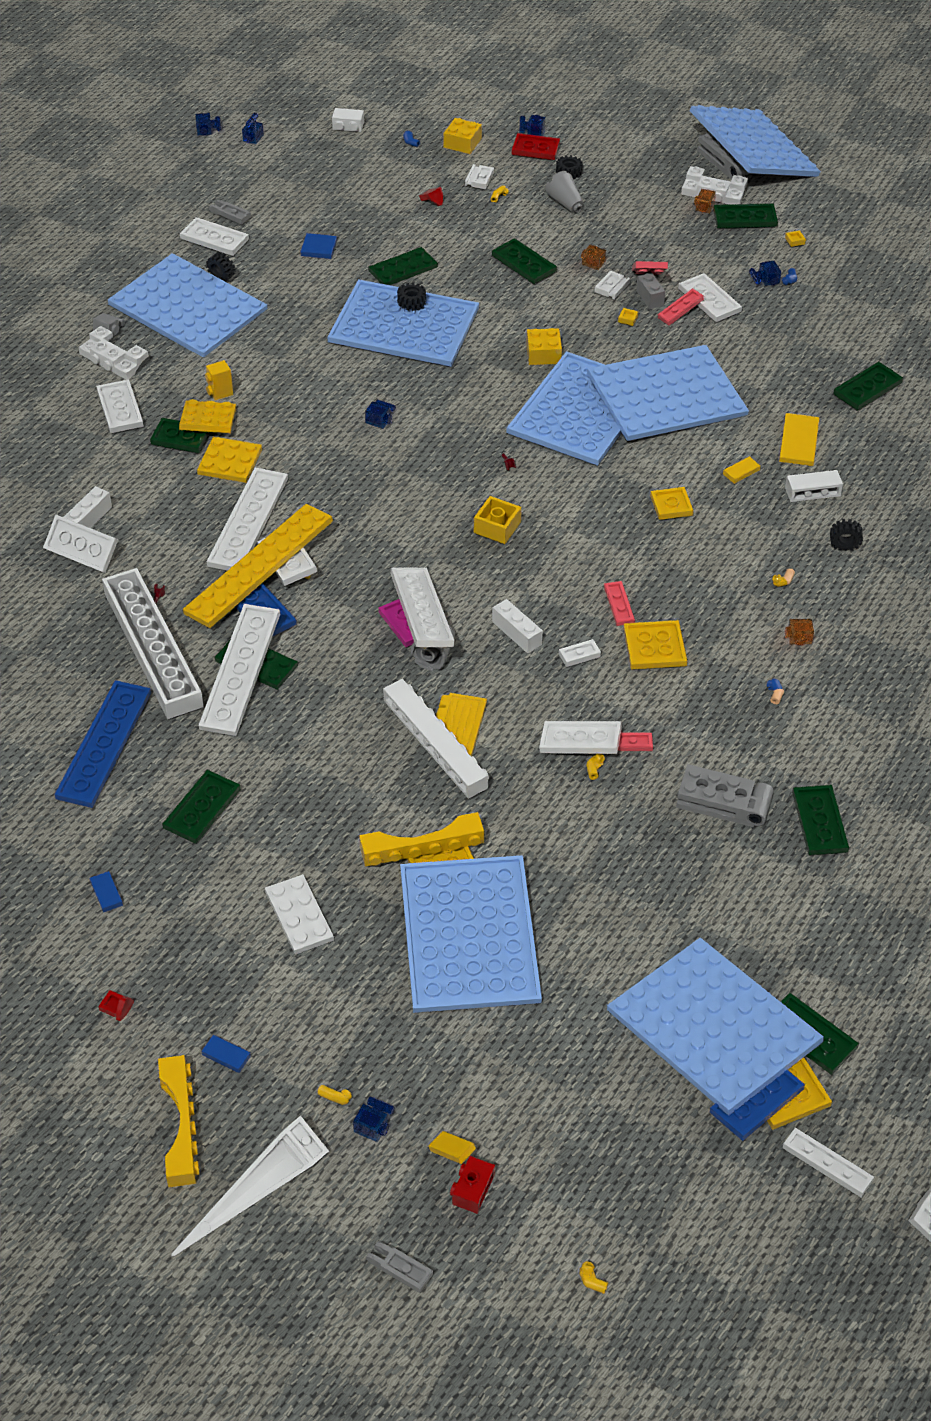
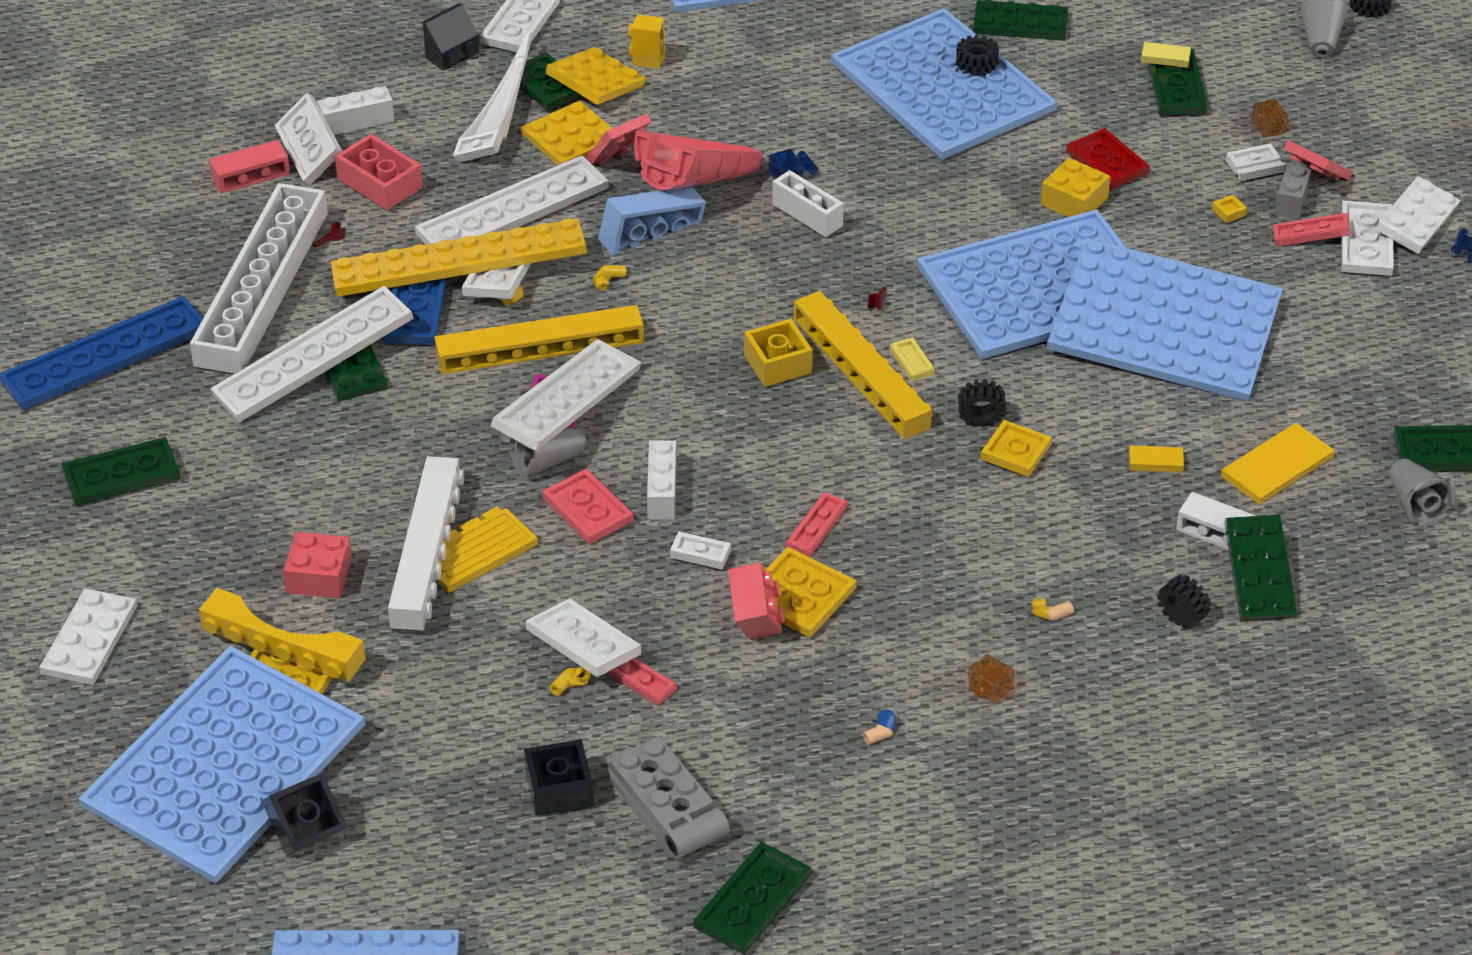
camera: 40 degrees right, 5 degrees down
(59, 580) = (249, 166): none -> coral brick
(97, 438) = (450, 37): none -> black slope
(148, 540) = (379, 171): none -> coral brick
(181, 479) = (493, 122): none -> white plate
(278, 443) = (617, 140): none -> coral plate
(331, 438) = (684, 162): none -> coral cone
(336, 482) = (648, 215): none -> light blue wedge
(346, 532) = (606, 272): none -> yellow arm
(355, 587) = (537, 339): none -> yellow brick
(387, 788) = (317, 565): none -> coral brick
(415, 427) = (807, 203): none -> white brick
(492, 664) = (588, 506): none -> coral plate
(506, 247) = (1165, 54): none -> light yellow tile
(536, 318) = (1108, 155): none -> red plate
(546, 502) = (863, 365): none -> yellow brick
(556, 929) = (304, 814): none -> black brick
(563, 485) = (912, 359): none -> light yellow tile
(633, 487) = (982, 414): none -> black tyre
(653, 660) = (756, 601): none -> coral brick
(658, 820) = (558, 777): none -> black brick
(721, 272) = (1418, 214): none -> white plate
(859, 496) = (1260, 568): none -> dark green plate
(882, 414) = (1421, 492): none -> light grey cone

